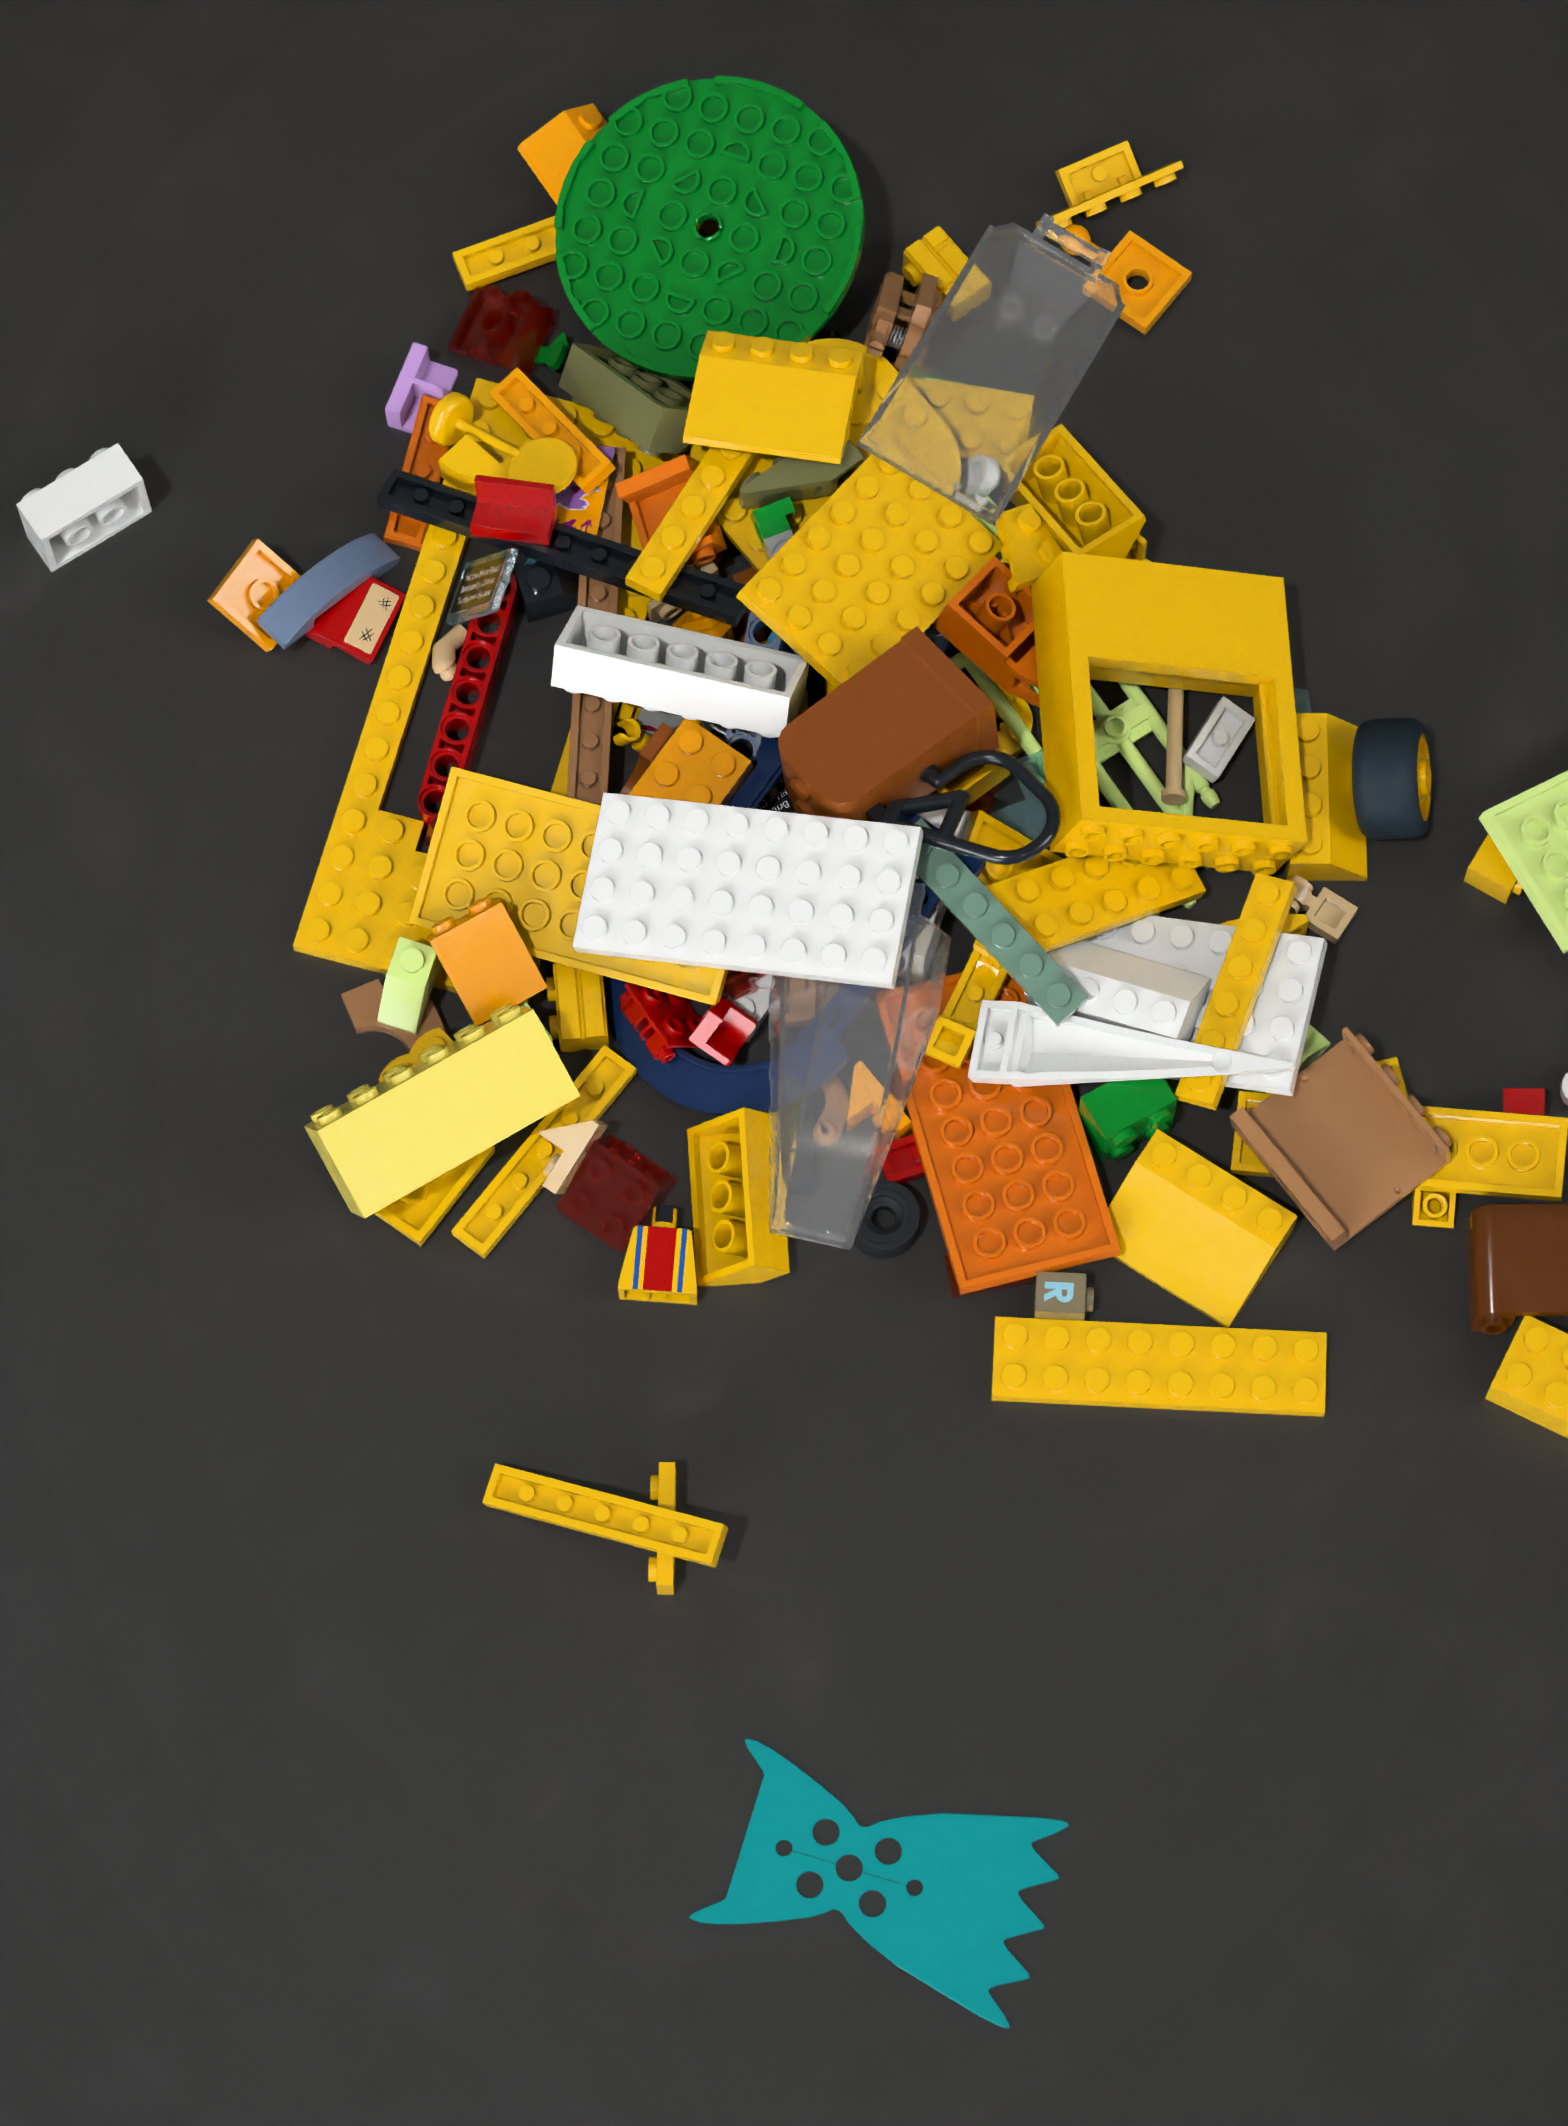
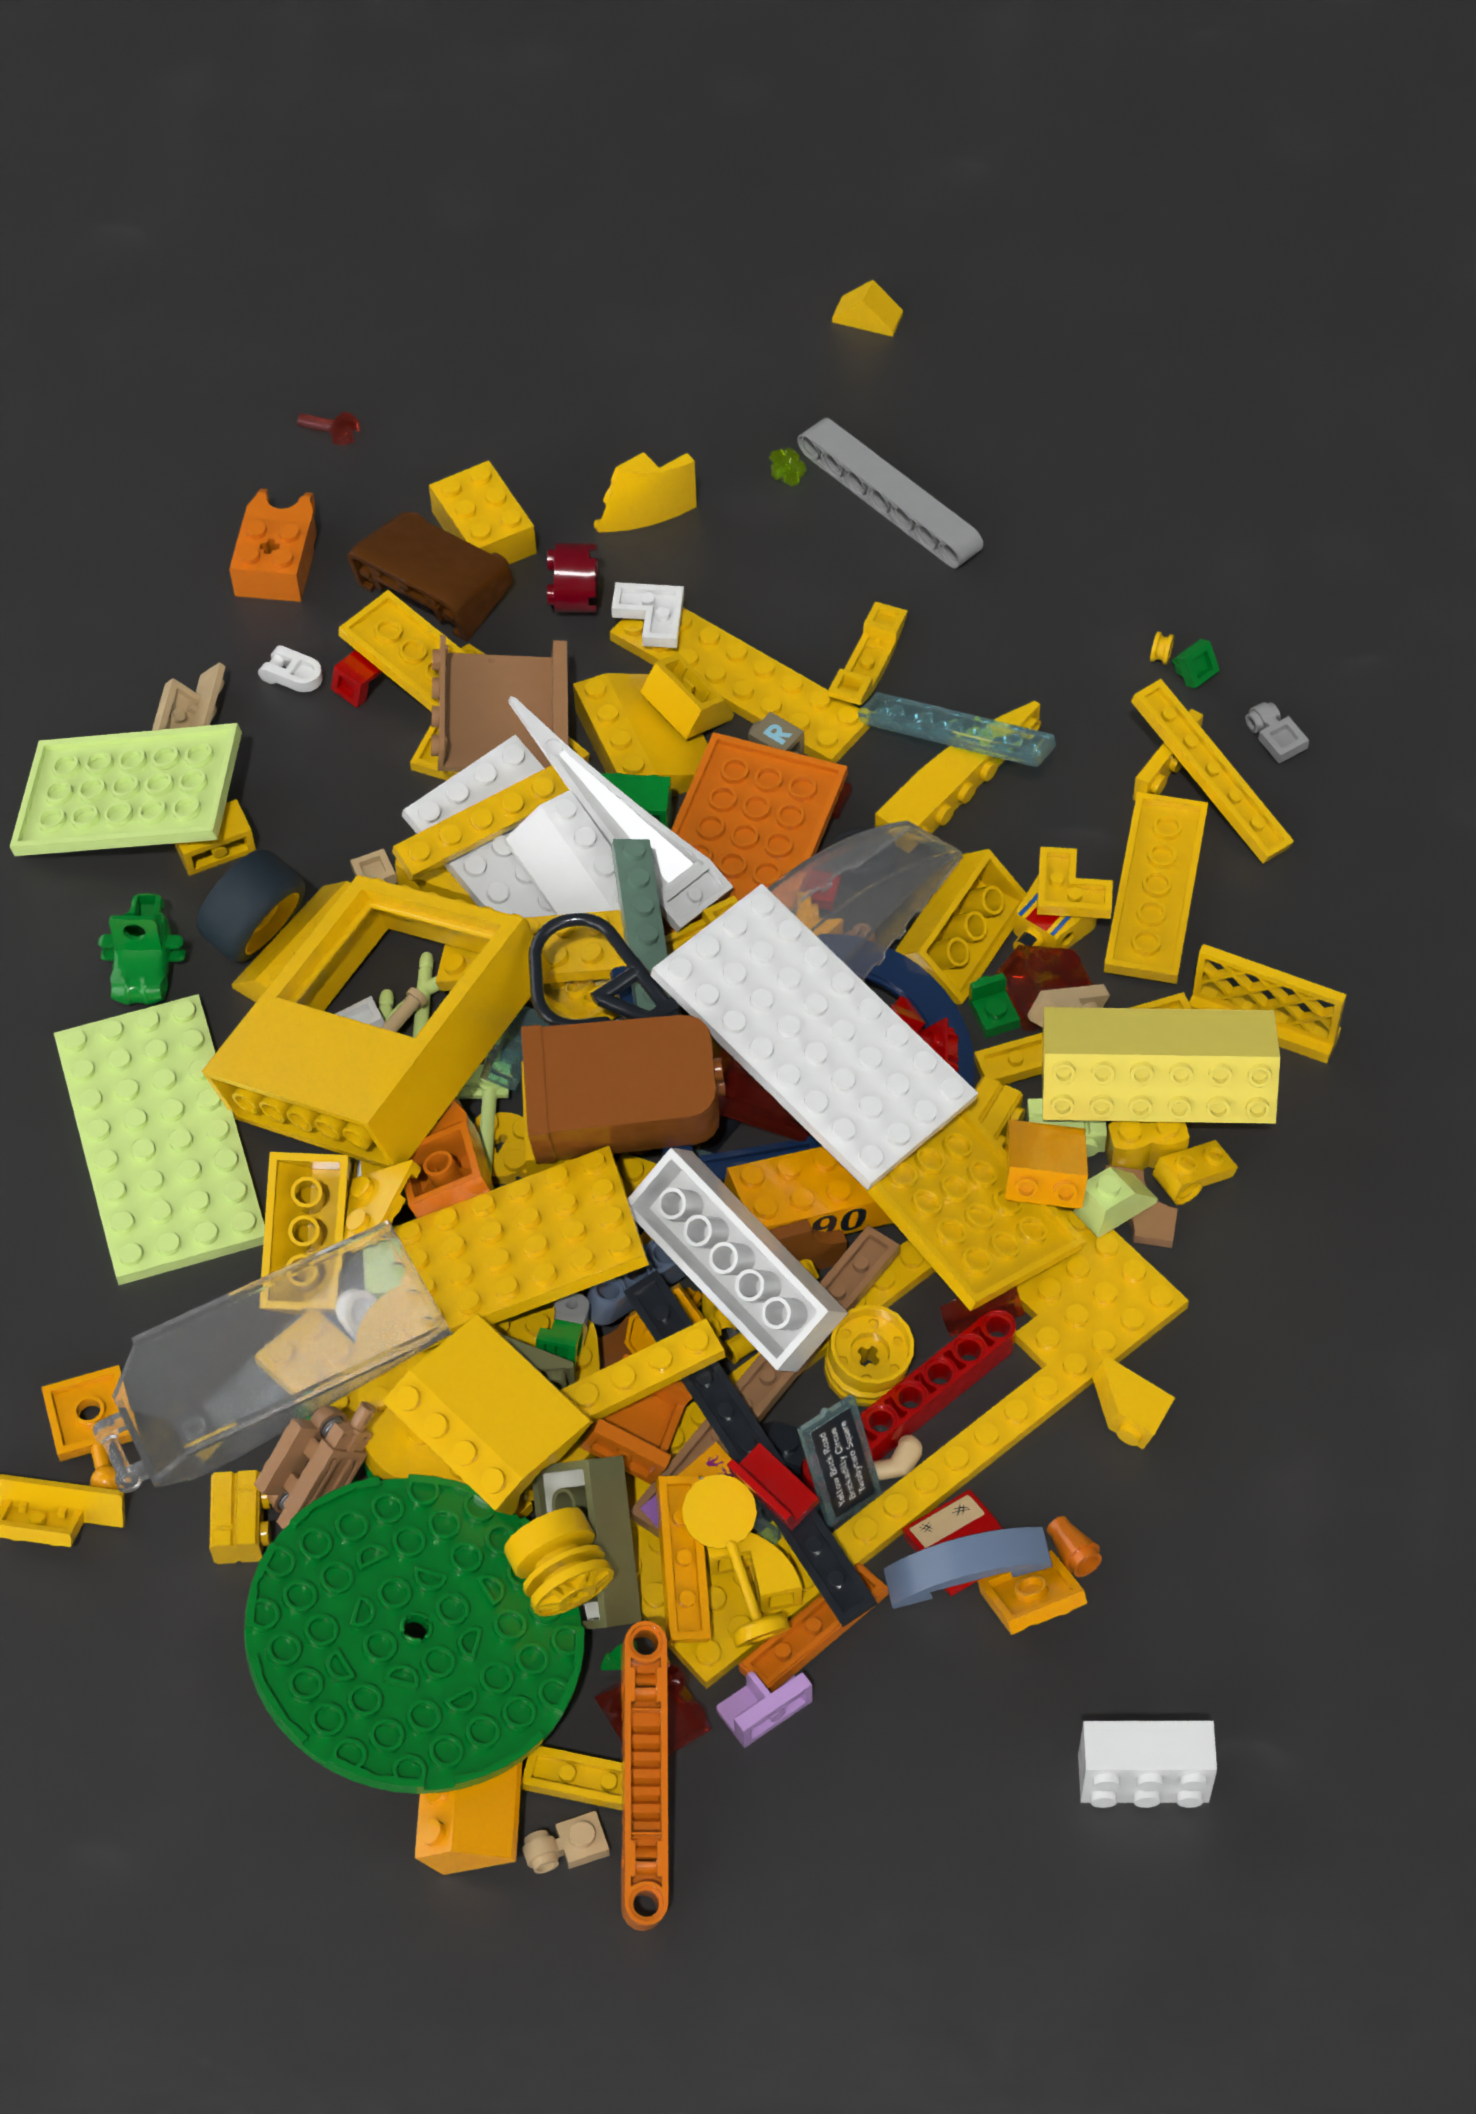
camera: 145 degrees left, 15 degrees down
(254, 663) = (1075, 1548): none -> orange cone
(278, 809) = (1130, 1402): none -> yellow slope
(362, 1065) = (1189, 1170): none -> yellow plate
(394, 1279) = (1302, 1032): none -> yellow fence
(464, 259) = (644, 1775): none -> orange gear
(492, 211) = (578, 1840): none -> tan plate
(522, 704) = (870, 1335): none -> yellow wheel
(569, 1628) = (1278, 736): none -> light grey plate
(584, 1367) = (1156, 888): none -> yellow plate
(631, 332) = (558, 1561): none -> yellow wheel
(652, 1264) = (1065, 894): none -> yellow plate
(654, 1136) = (992, 1005): none -> green bracket
(709, 1668) = (1196, 663): none -> green tile
(757, 1668) = (1162, 648): none -> yellow bush
(860, 1362) = (949, 780): none -> yellow slope
(881, 1393) = (957, 729): none -> clear light blue plate
(945, 1934) = (1142, 458): teal piece -> none
(1044, 1460) = (870, 656): none -> yellow slope
(1176, 1282) = (684, 697): none -> yellow slope
(1176, 1699) = (890, 493): none -> light grey beam
(1291, 1372) = (657, 604): none -> white plate
(1309, 1668) = (787, 465): none -> clear neon green plant
(1352, 579) = (159, 1140): none -> yellowish green plate
(1384, 1958) = (869, 310): none -> yellow slope
(1403, 1353) = (573, 577): none -> dark red brick
(1419, 1511) = (648, 494): none -> yellow slope
(1463, 695) = (141, 951): none -> green piece

